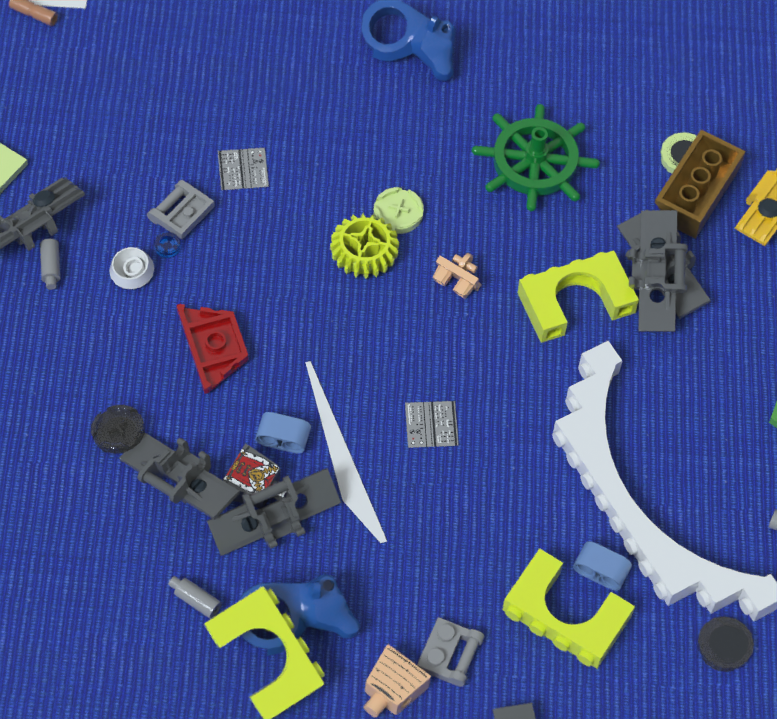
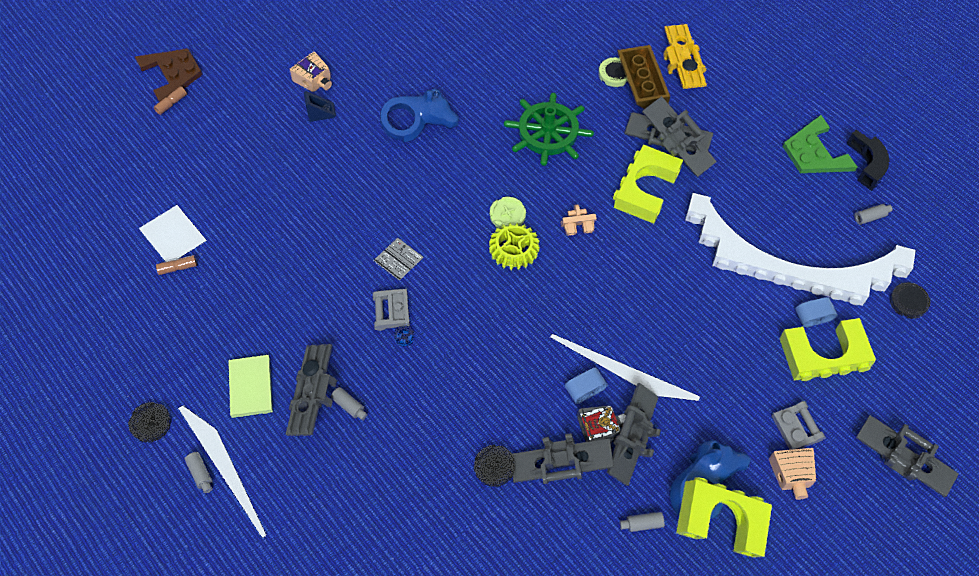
camera: 40 degrees left, 0 degrees up
(131, 268) = (399, 366): white hat -> none
(214, 343) = (492, 368): red wing -> none
(431, 424) = (650, 313): light grey sticker -> none

